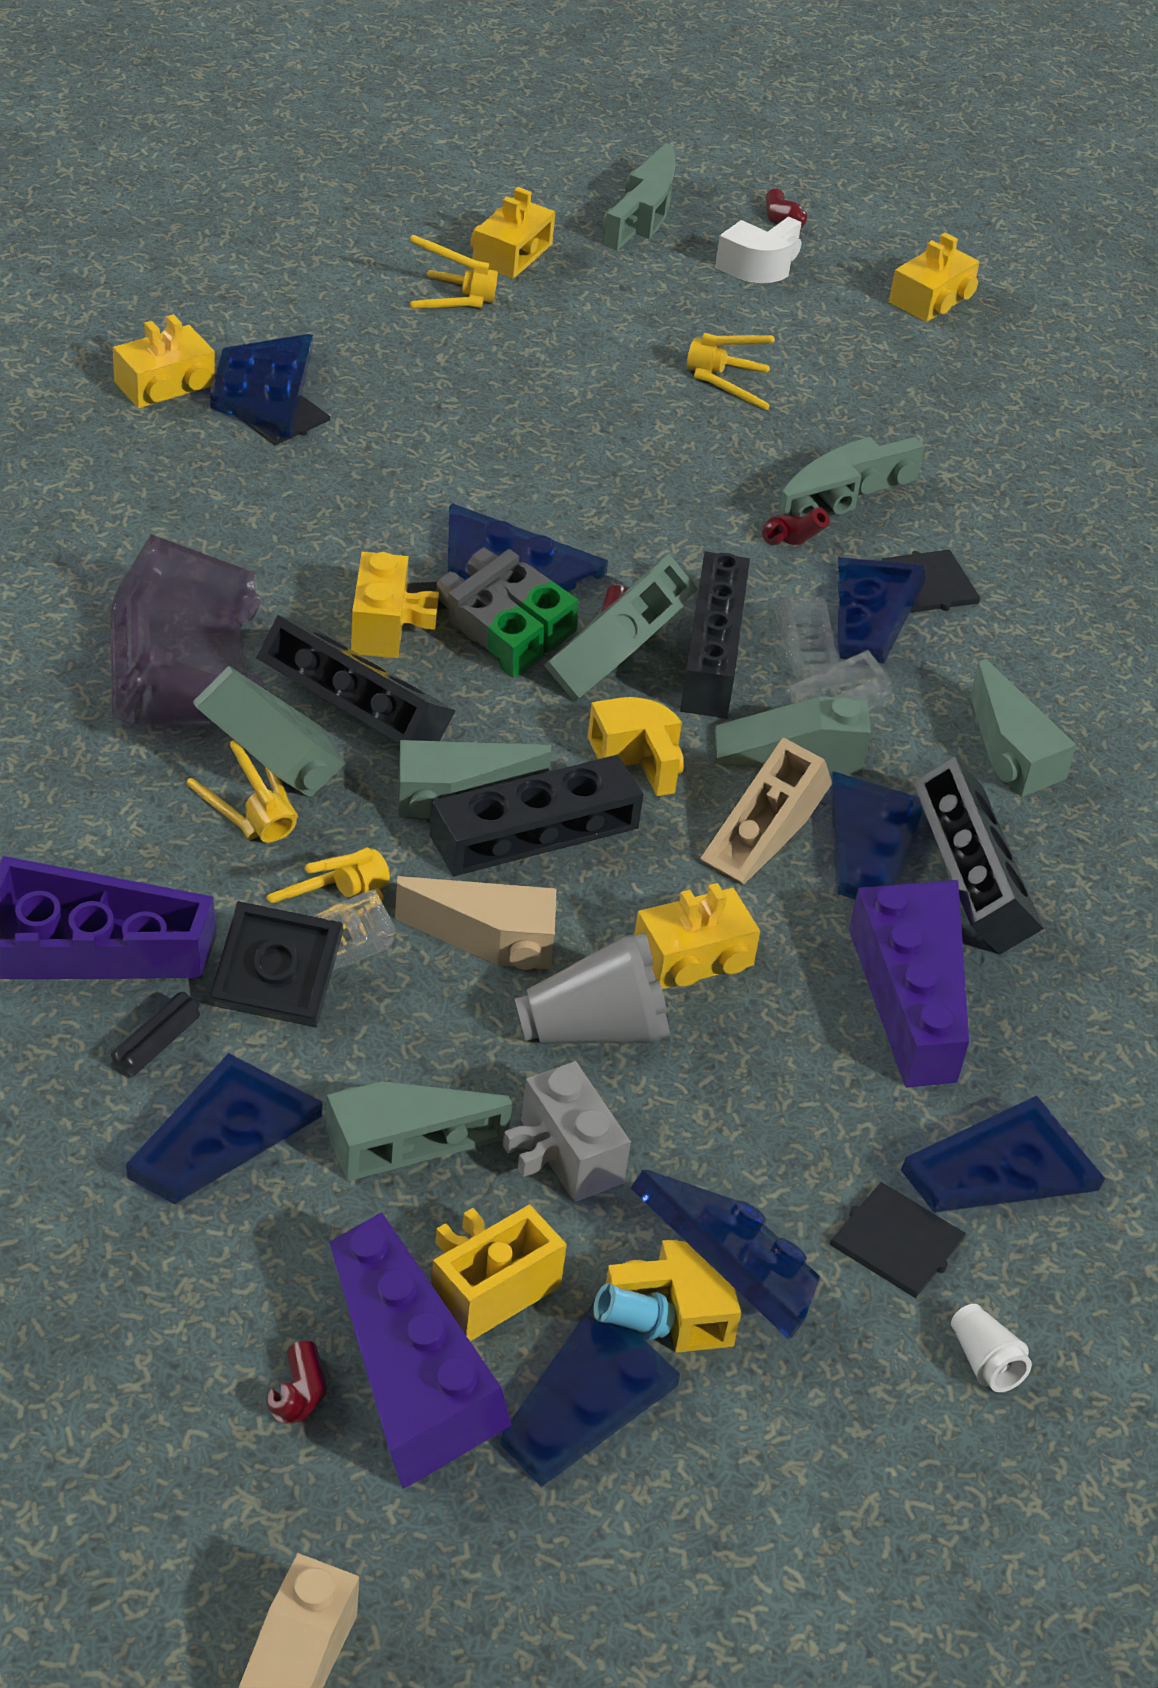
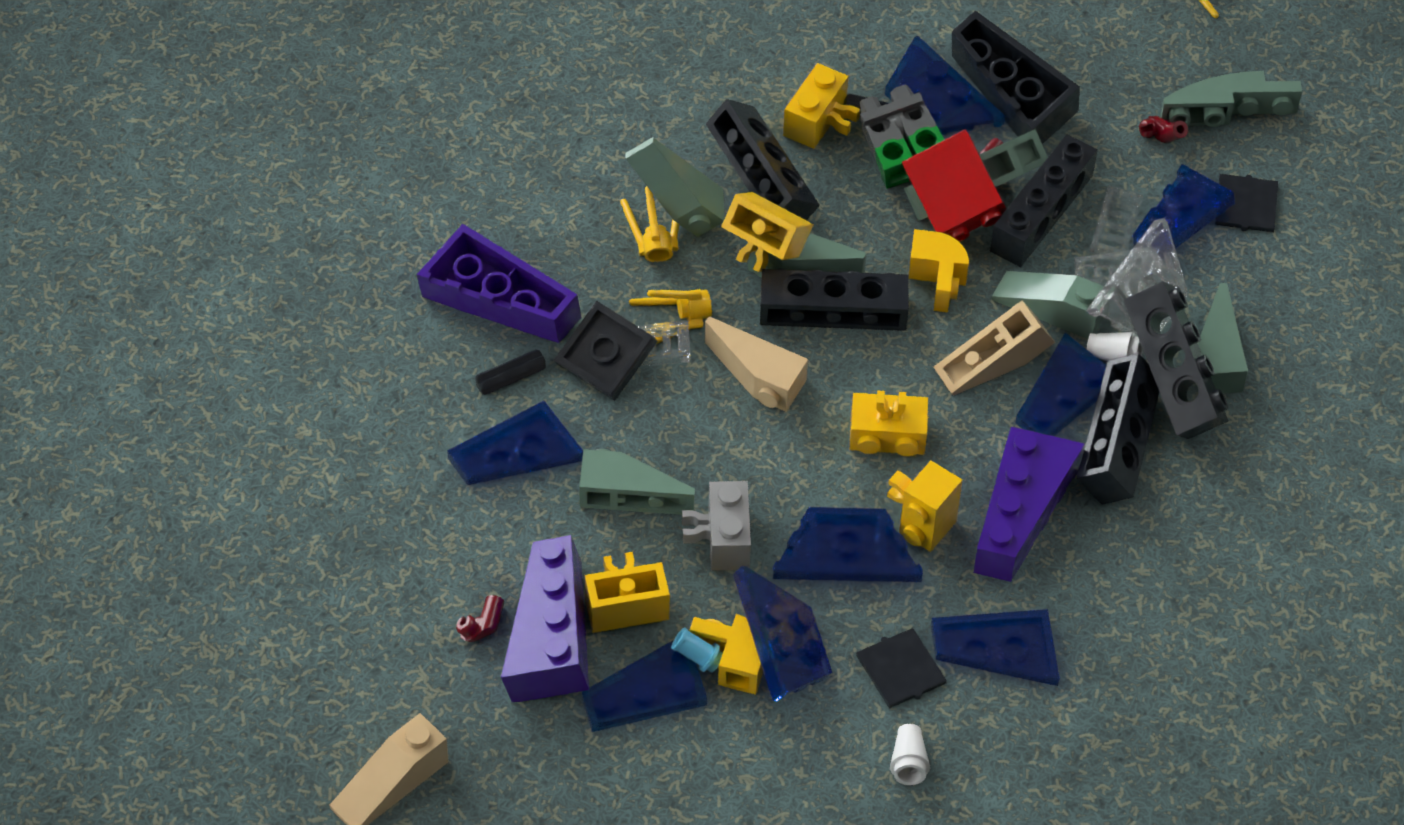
camera: 30 degrees right, 10 degrees up
(176, 632) = (668, 90): clear purple windscreen -> none
(420, 742) = (765, 228): none -> yellow brick
(595, 512) = (1014, 78): none -> black wedge
(599, 999) = (795, 444): light grey cone -> none
(613, 638) = (955, 186): none -> red panel
(739, 1108) = (847, 547): none -> clear blue wing
(815, 1015) = (928, 504): none -> yellow brick
(897, 689) = (1147, 264): none -> clear wing
(900, 767) = (1113, 345): none -> white cone
(1040, 816) = (1146, 313): none -> black brick

